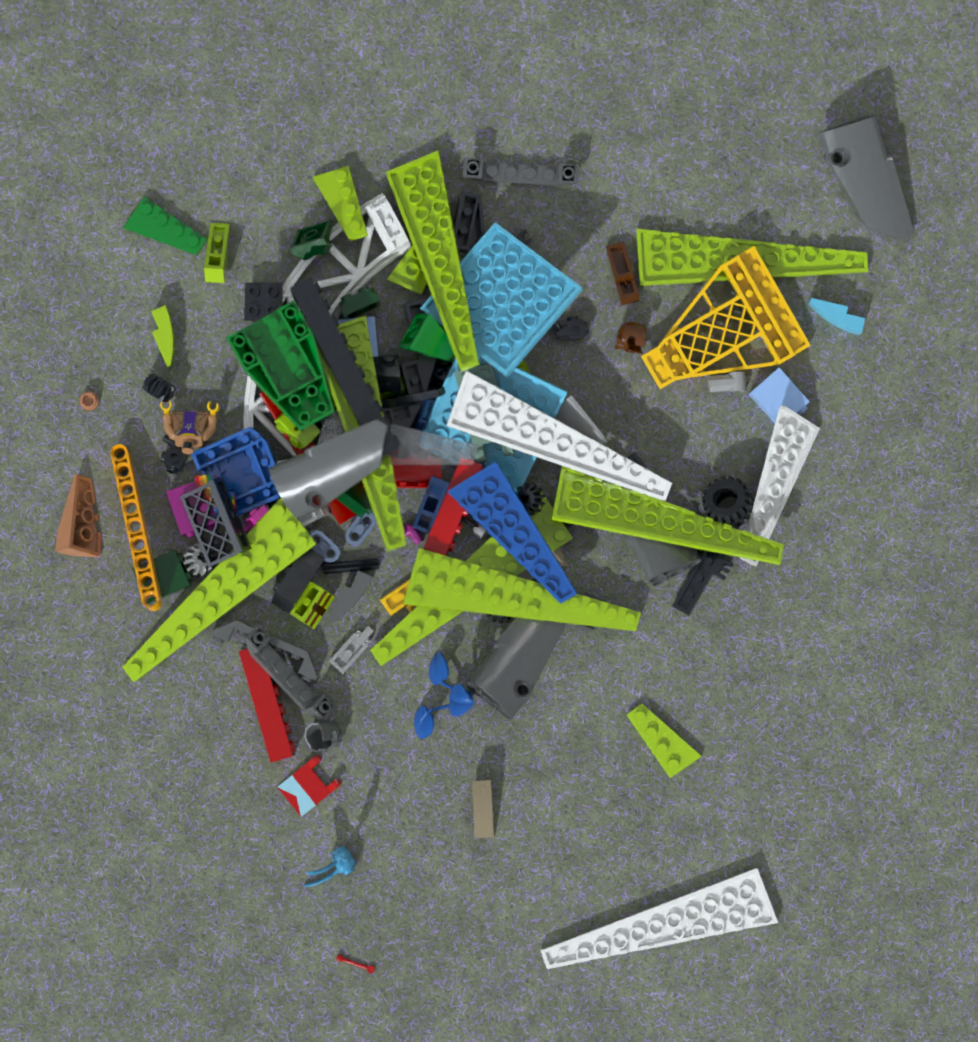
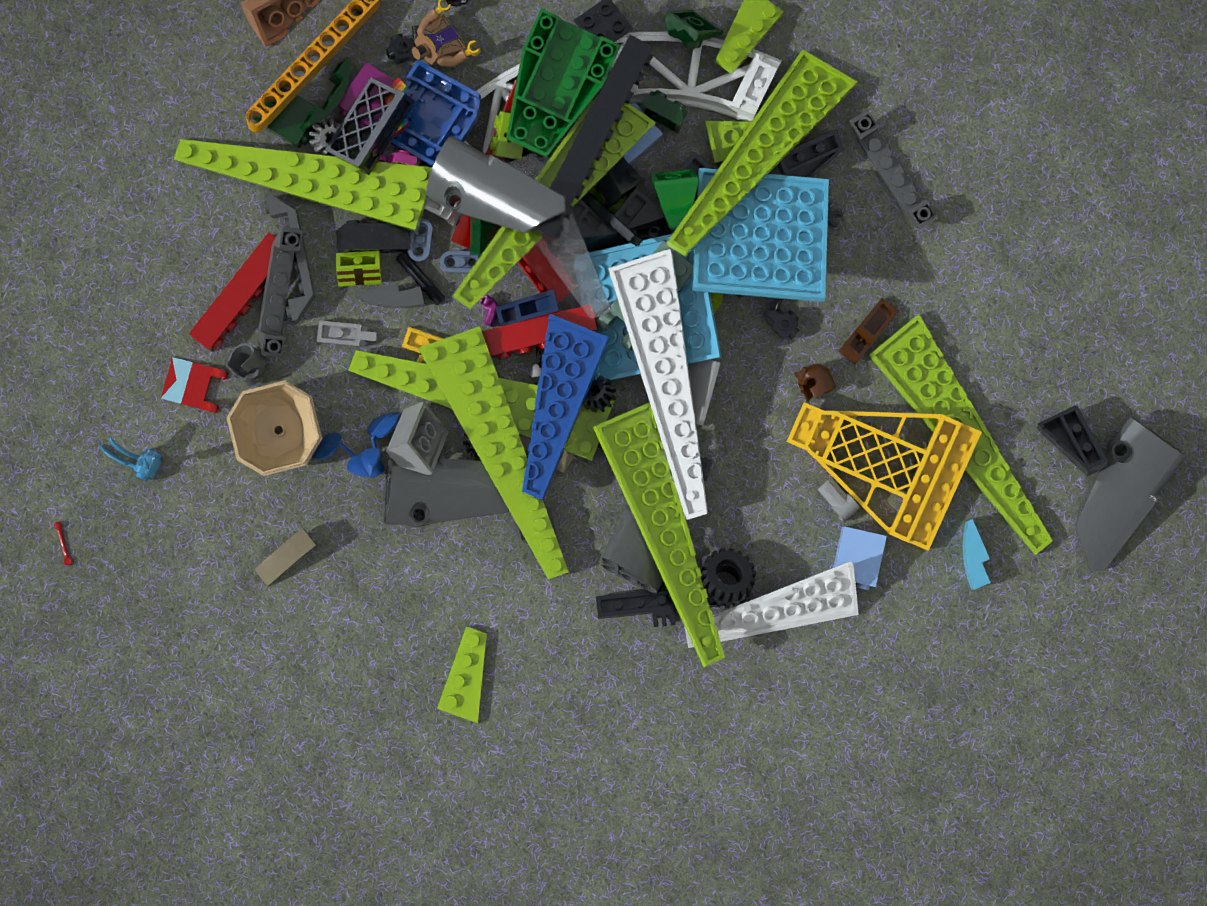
camera: 55 degrees right, 0 degrees up
(163, 518) = (340, 78): none -> dark green slope
(366, 748) = (254, 424): none -> tan rock
(423, 419) = (605, 244): dark blue piece -> none
(468, 651) = (417, 439): none -> light grey slope
(710, 911) = (344, 835): white wing -> none
(806, 184) = (1074, 439): none -> black wedge

